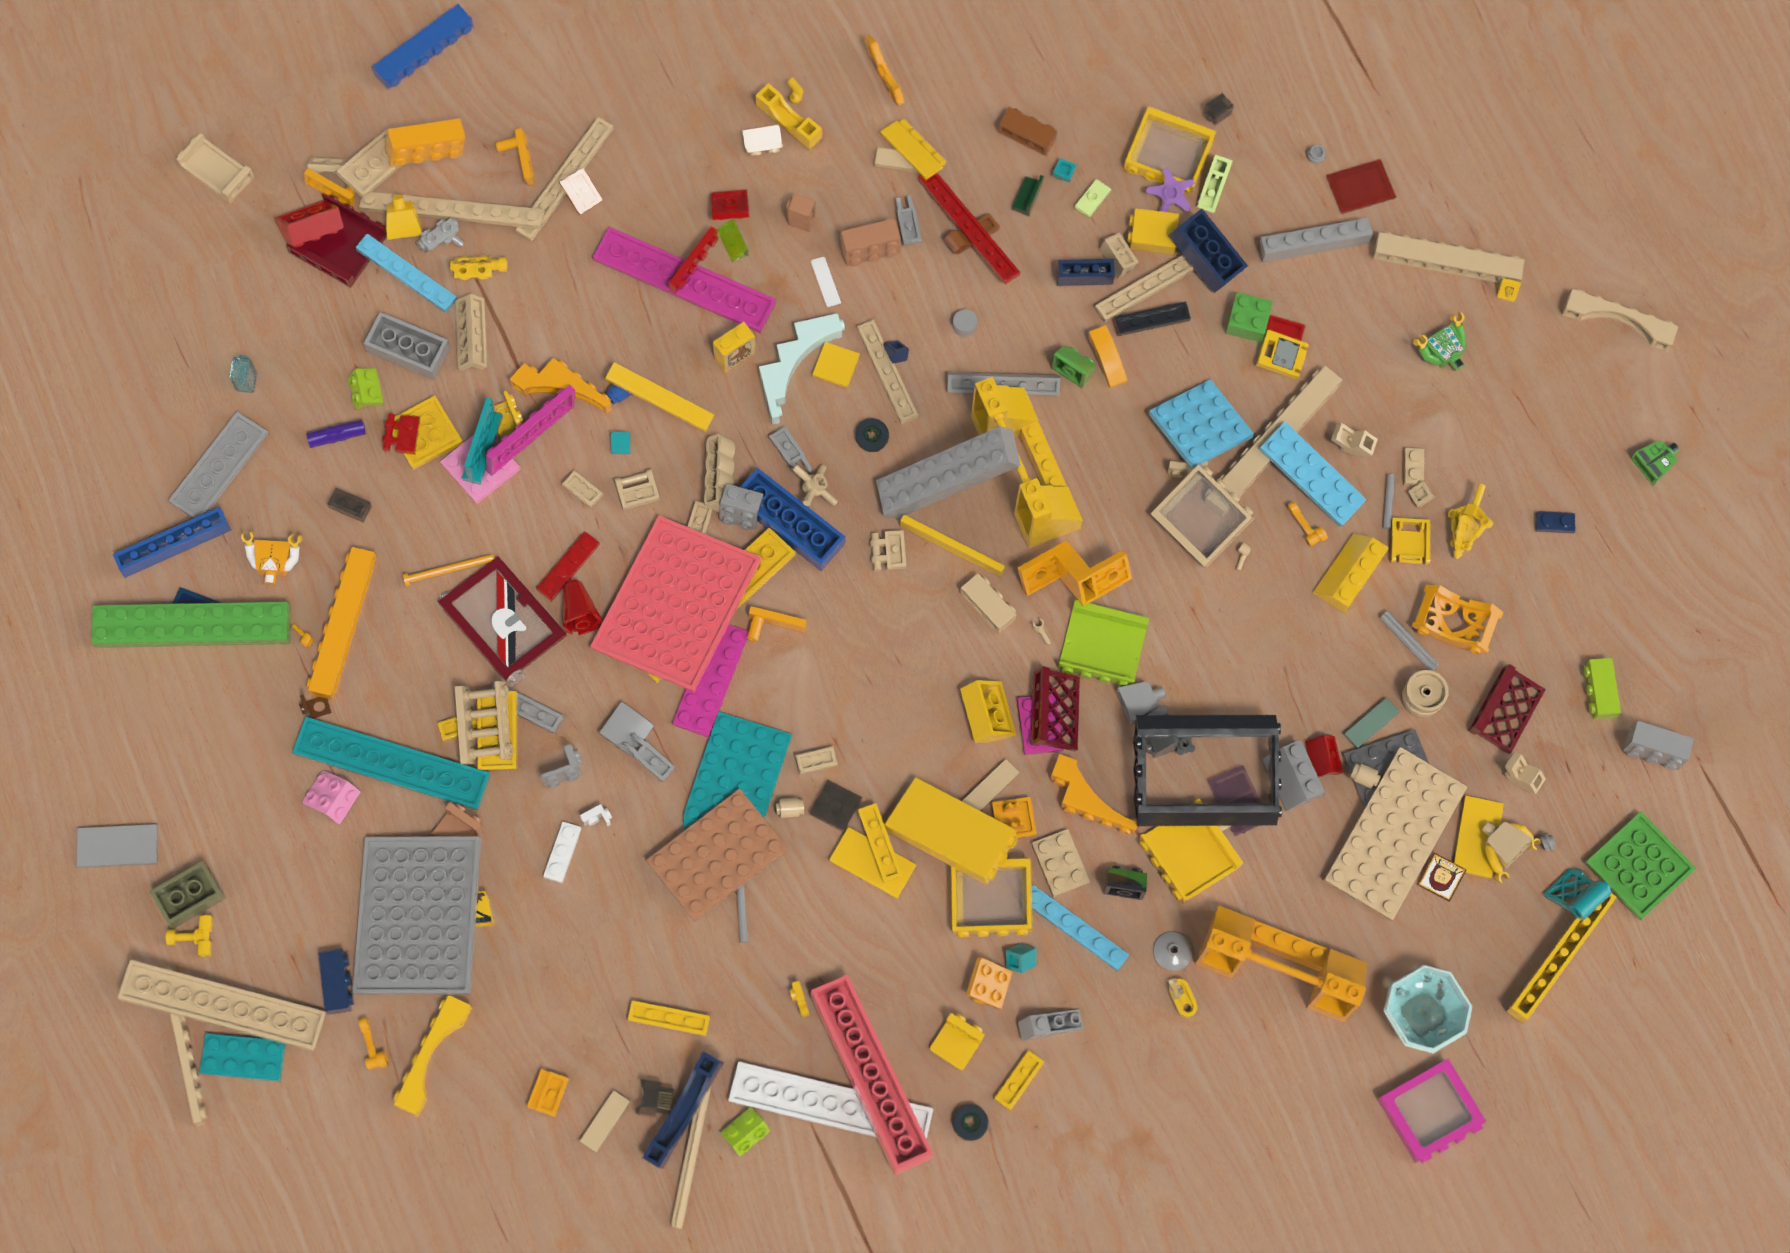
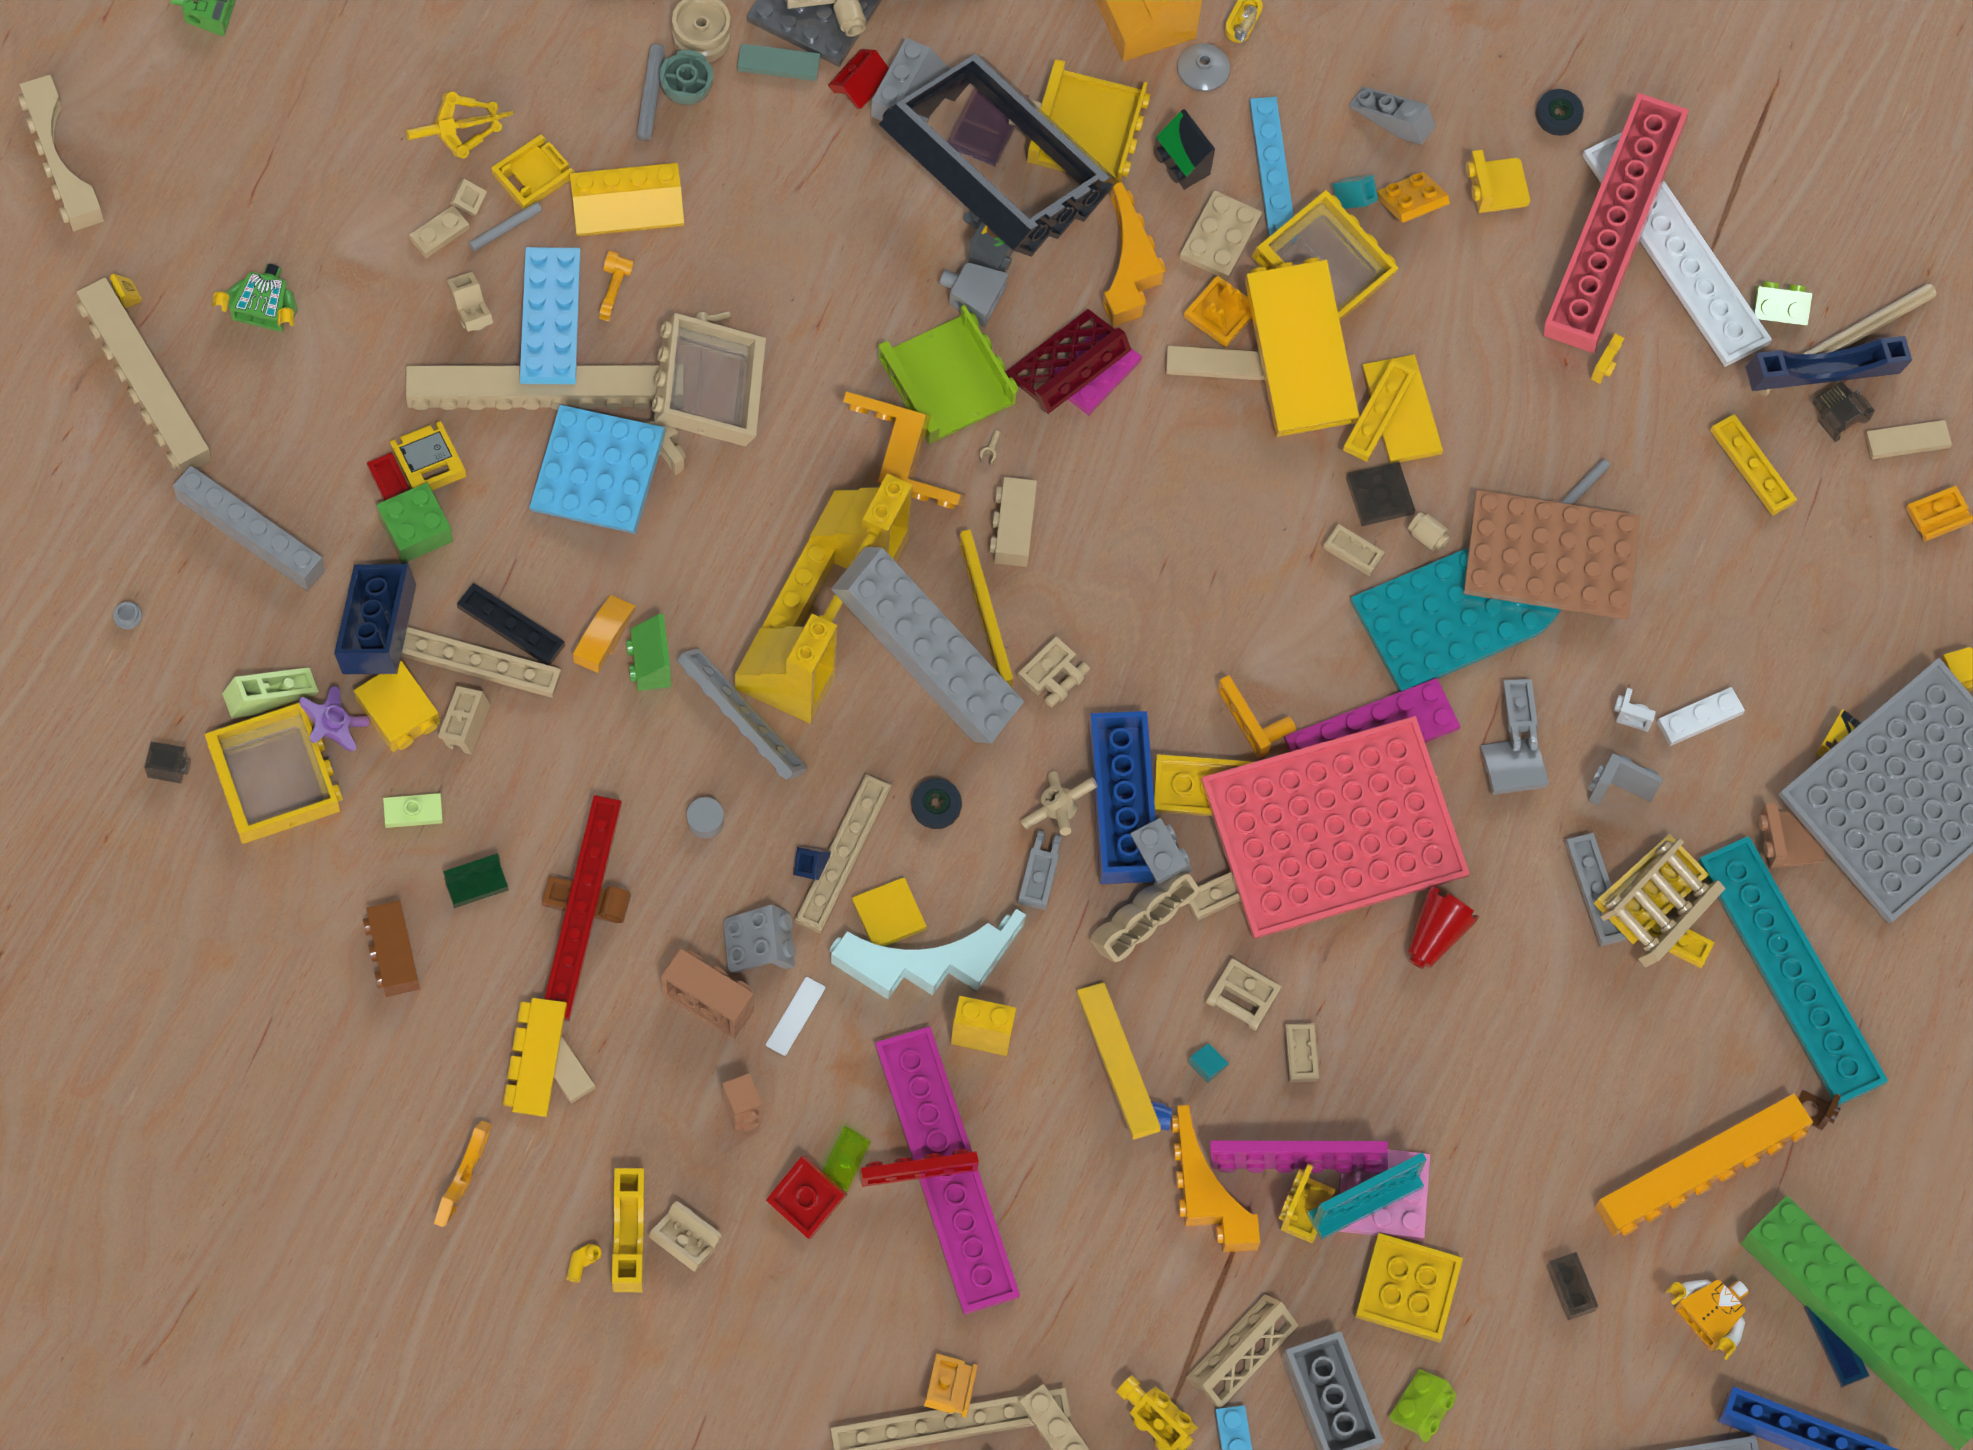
camera: 135 degrees left, 5 degrees down
(306, 639) = (1757, 1190): light orange hand -> none
(331, 796) = (1889, 999): bright pink bracket -> none
(336, 433) = (1508, 1385): dark purple axle -> none
(407, 433) = (1435, 1295): red plate -> none
(446, 569) = (1533, 1115): light orange bar -> none
(502, 620) = (1528, 1003): door -> none
(568, 566) = (1400, 990): red plate -> none
(876, 294) = (759, 939): none -> light grey bracket
(908, 222) = (635, 985): light grey hinge -> none
(988, 711) = (1134, 425): yellow slope -> none
(1019, 1080) = (1474, 103): yellow tile -> none
(1064, 170) = (405, 868): teal plate -> none
(1085, 272) = (522, 733): dark blue brick -> none
(1361, 186) = (126, 540): clear red piece -> none
(1398, 657) = (686, 77): none -> sand green cylinder
(1479, 609) = (579, 93): light orange fence -> none
(1555, 522) = (374, 52): dark blue plate -> none

